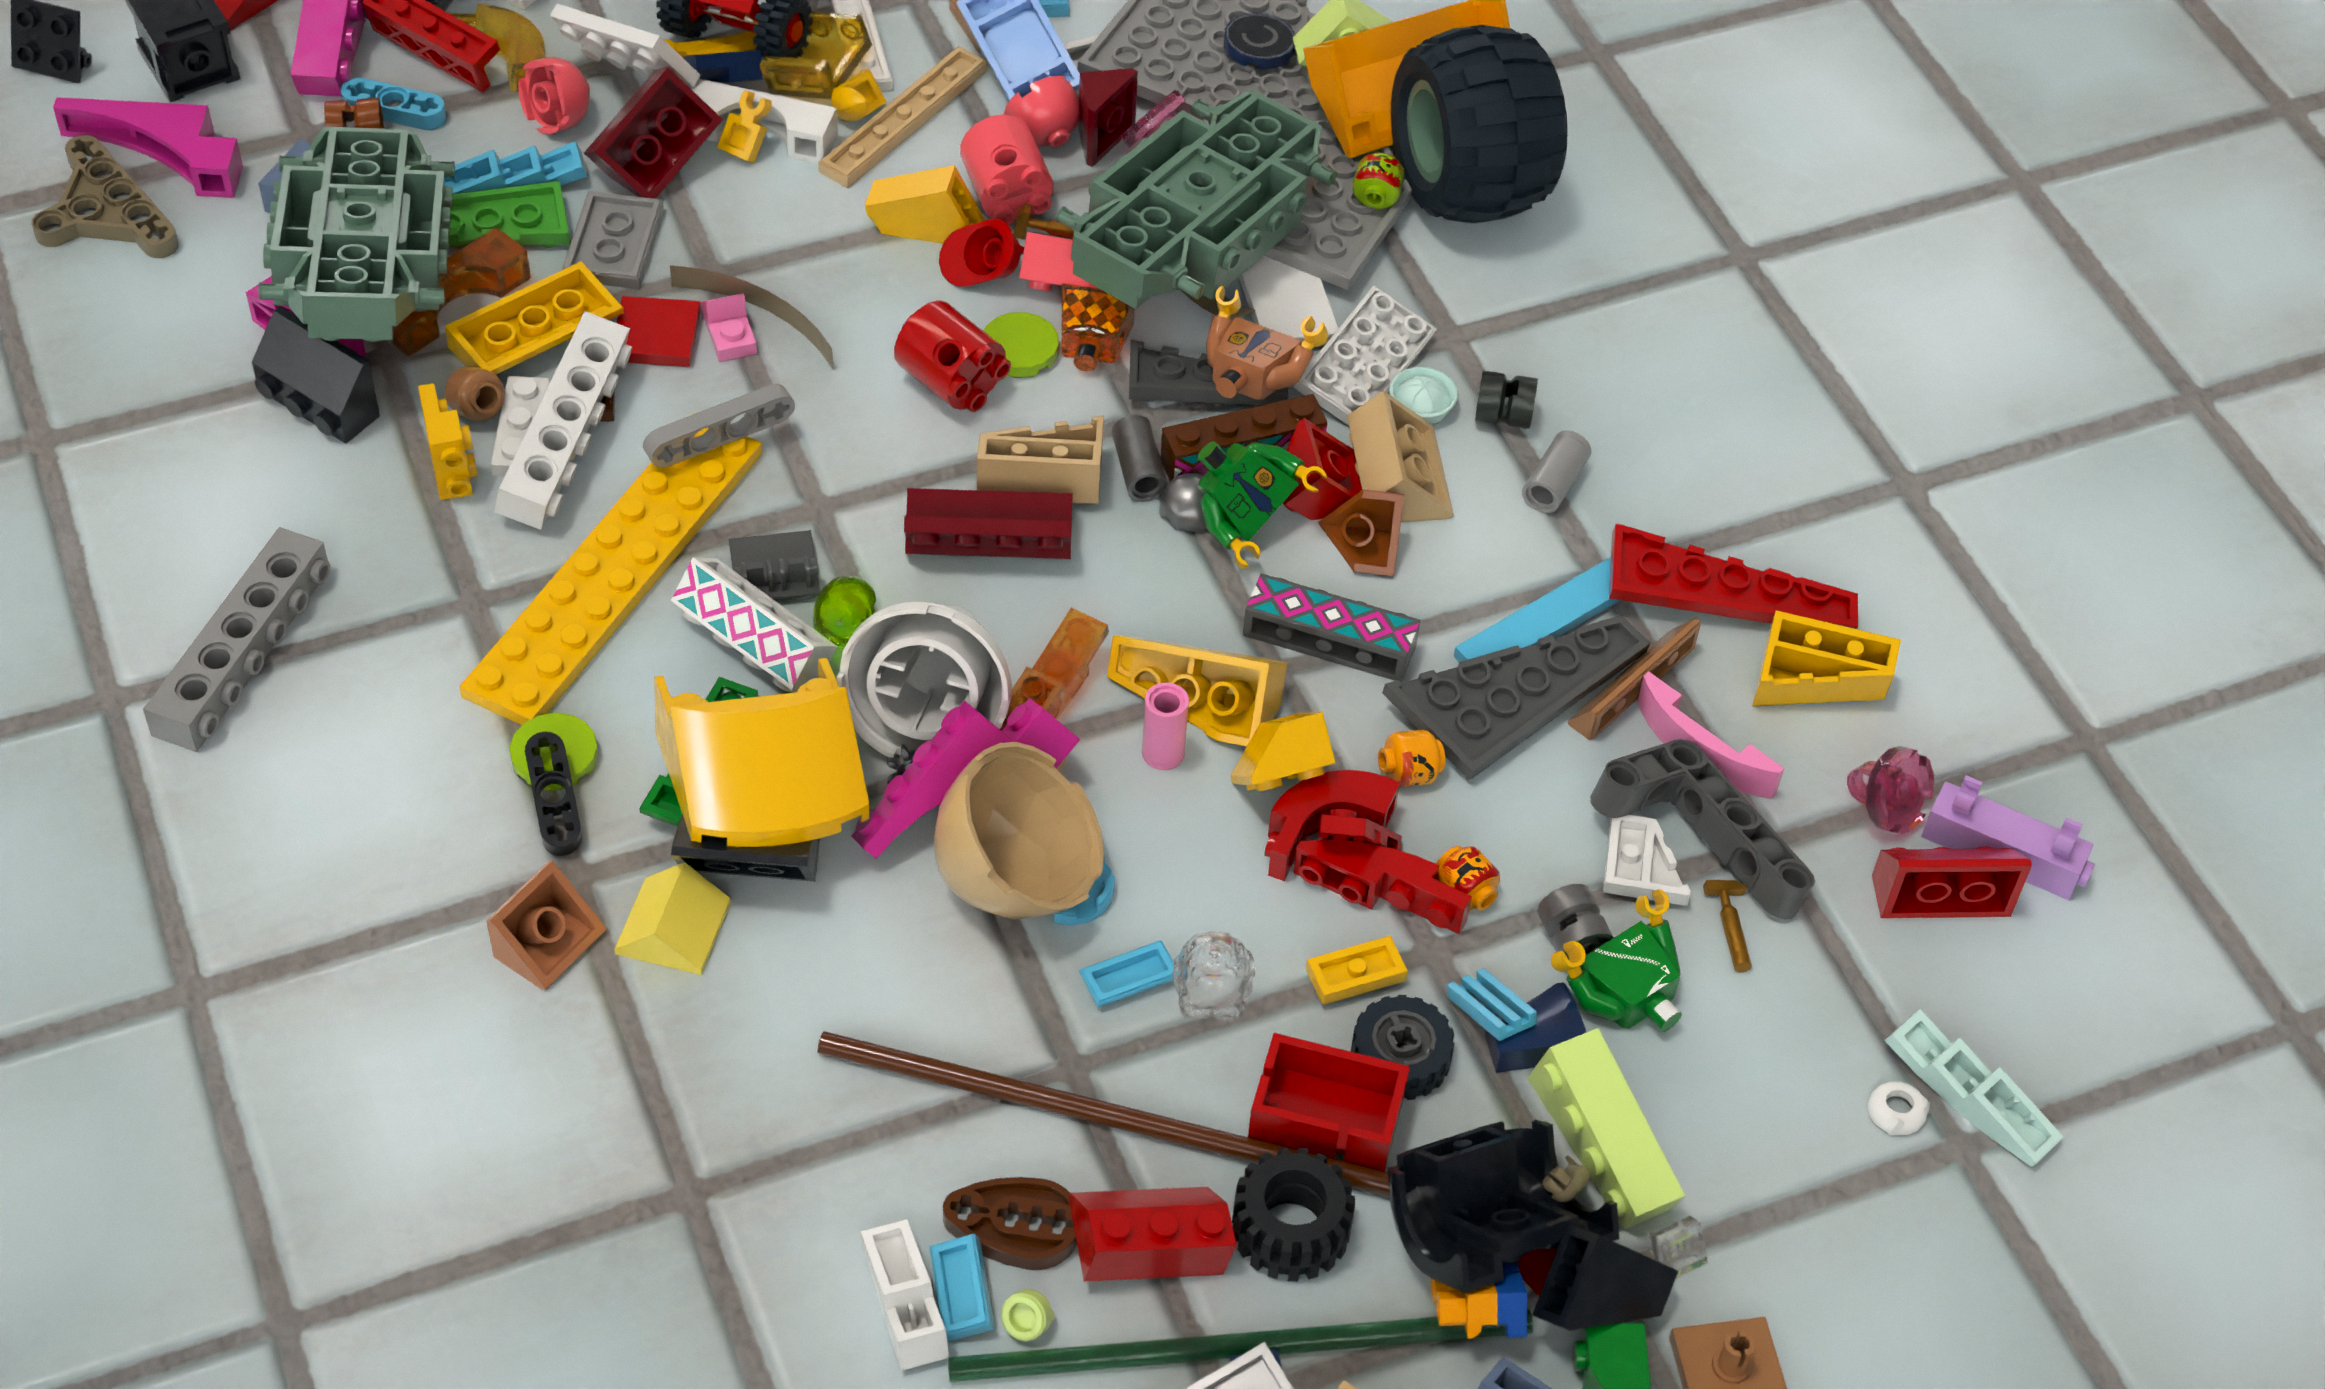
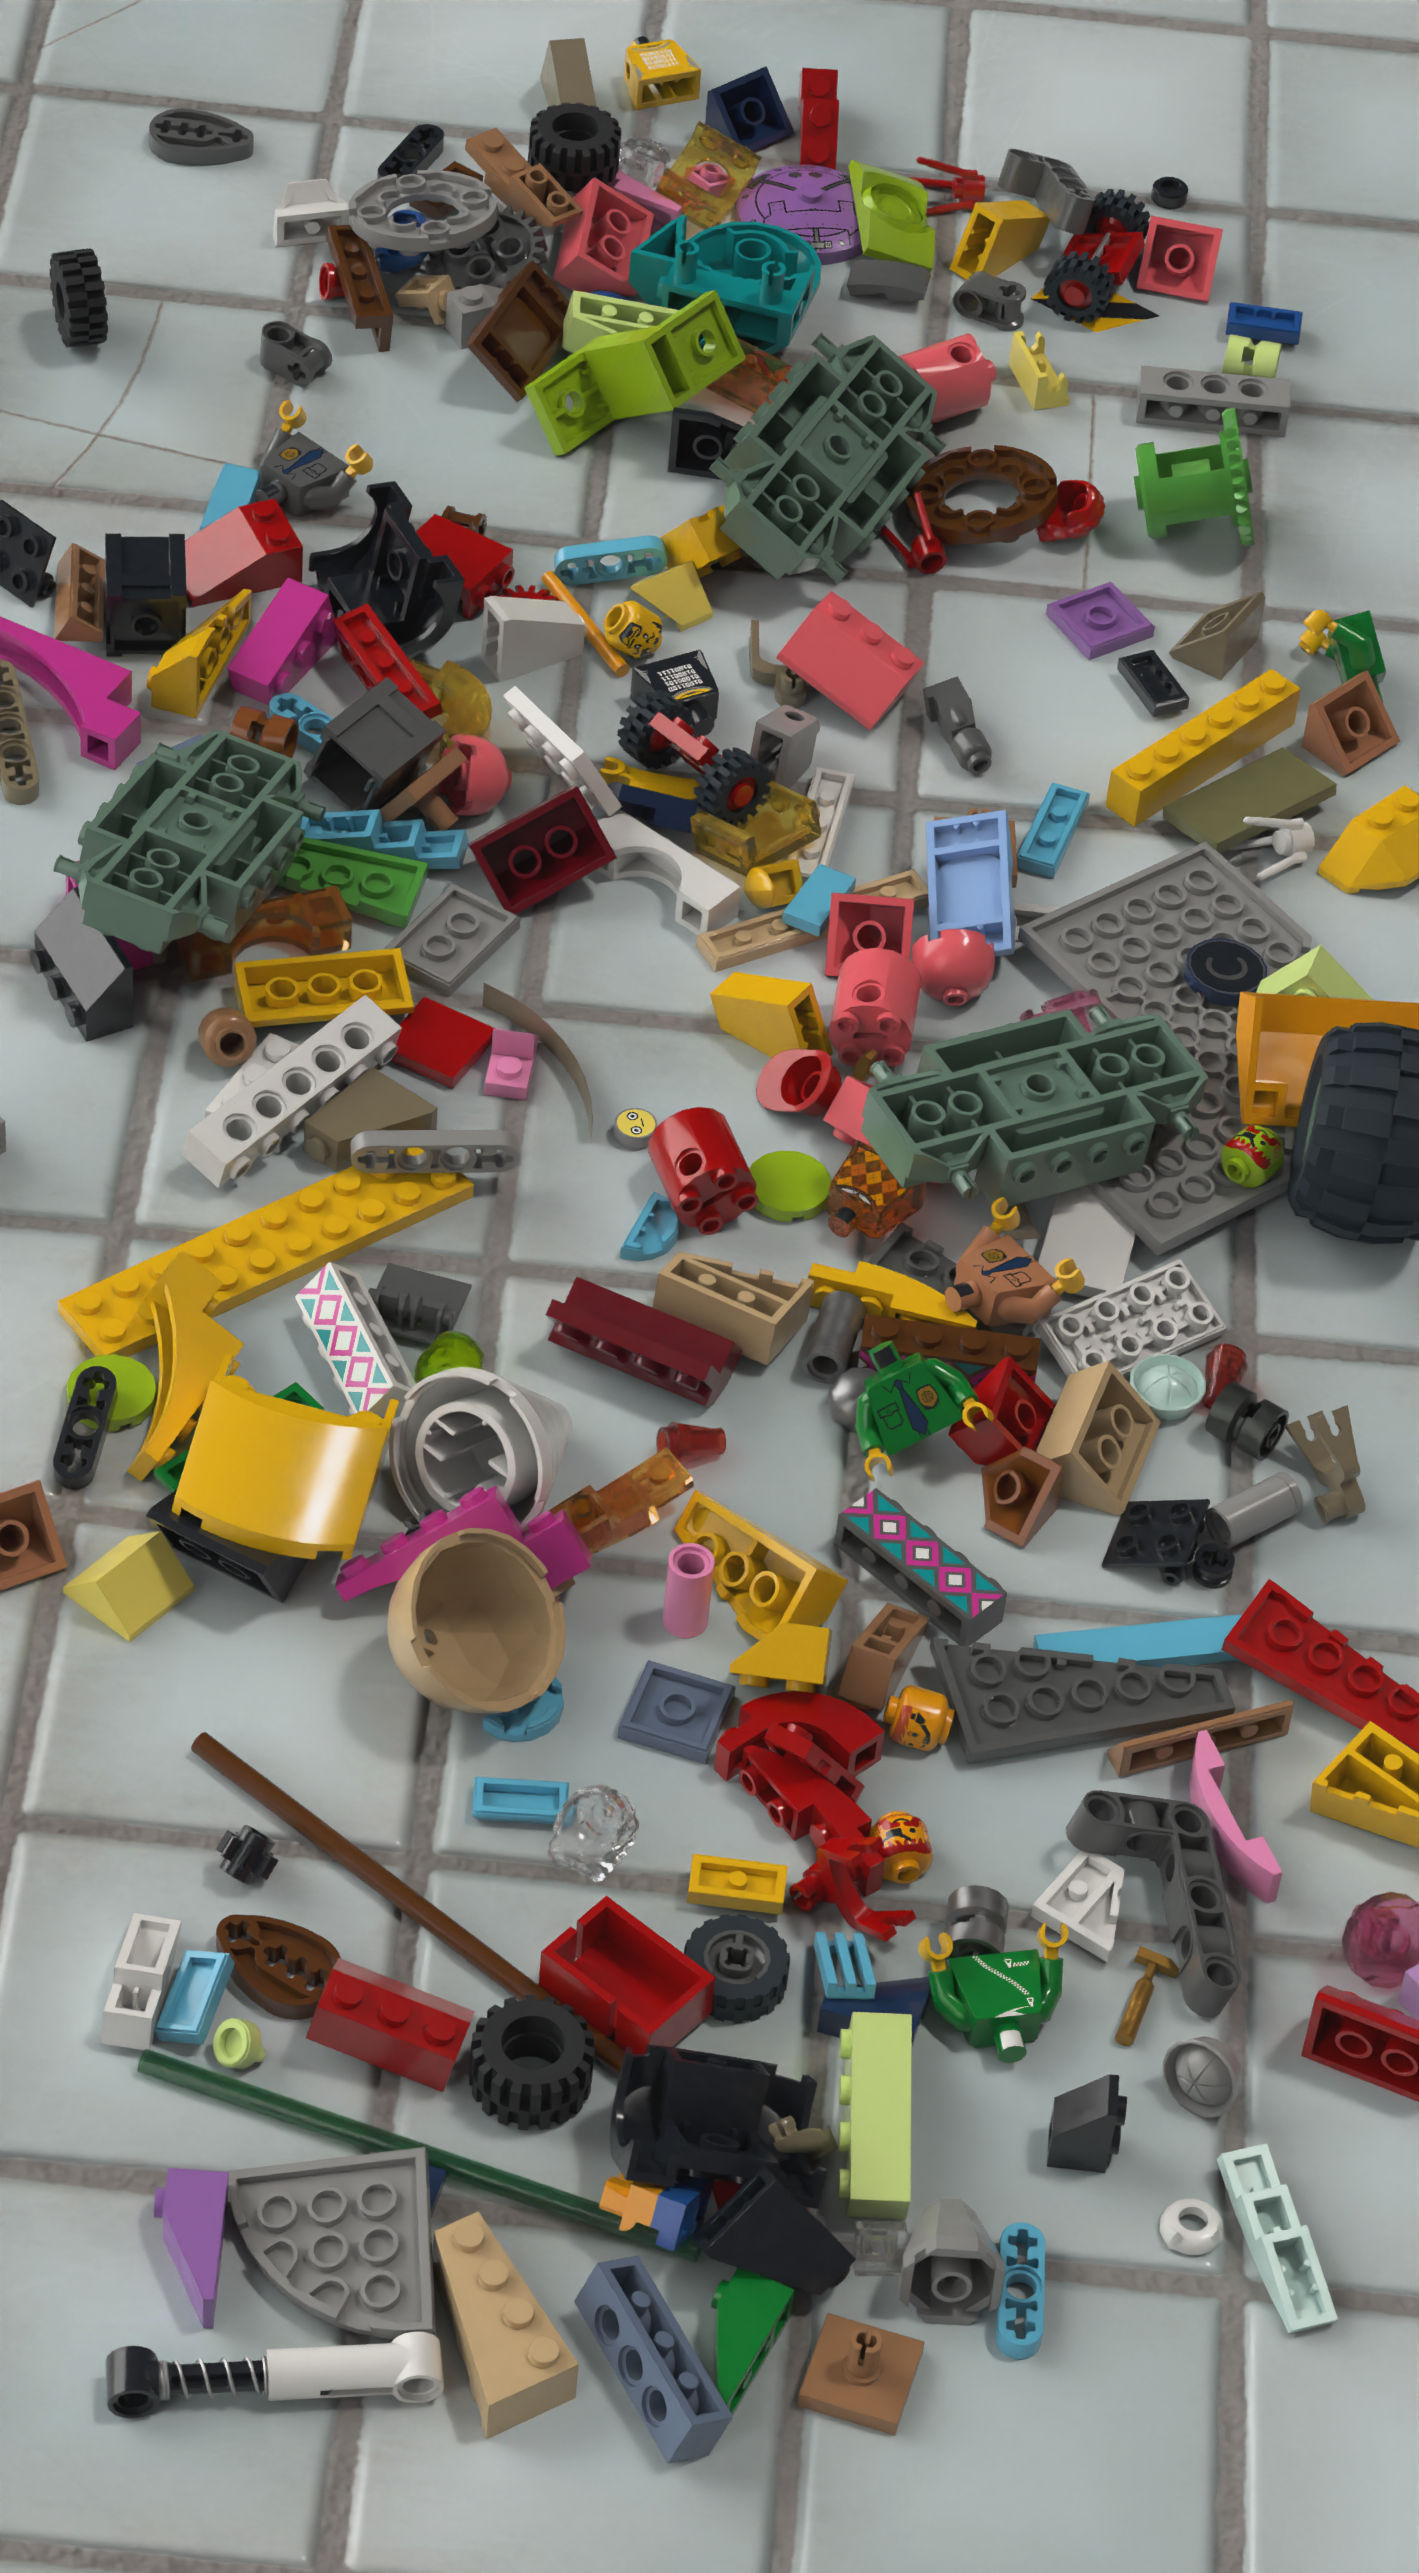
camera: 25 degrees right, 5 degrees down
(120, 58) = (80, 596): none -> medium nougat slope
(255, 79) = (197, 661): none -> yellow wedge
(447, 445) = (167, 1075): yellow plate -> none
(464, 98) = (374, 749): none -> dark grey container
(520, 121) = (423, 794): none -> medium nougat tile
(614, 692) = (189, 1356): none -> yellow arch
(631, 414) = (365, 1105): none -> dark tan slope
(742, 132) = (637, 877): yellow plate -> none
(865, 343) = (634, 1127): none -> tile
(902, 97) = (811, 905): none -> medium azure tile
(931, 1131) = (247, 1854): none -> black gear
(934, 424) = (653, 1231): none -> medium azure tile
(956, 106) = (866, 923): none -> coral slope
(1076, 594) = (691, 1441): none -> clear red cone
(1106, 110) = (1014, 981): dark red slope -> none
(1165, 404) = (887, 1294): none -> yellow slope
(1208, 837) = (676, 1712): none -> sand blue tile
(1350, 717) = (881, 1656): none -> medium nougat slope
(1436, 934) = (830, 1882): none -> red piece
(1460, 364) = (1222, 1366): none -> clear red cone
(1496, 523) = (1158, 1536): none -> black hinge
(1548, 540) = (1210, 1555): none -> black bush
(1610, 421) = (1340, 1476): none -> dark tan piece
(1748, 1235) = (951, 2266): none -> light grey cone
(1775, 1058) = (1086, 2126): none -> black slope
(1807, 1251) = (1031, 2308): none -> medium azure beam
(1834, 973) = (1202, 2076): none -> light grey hat

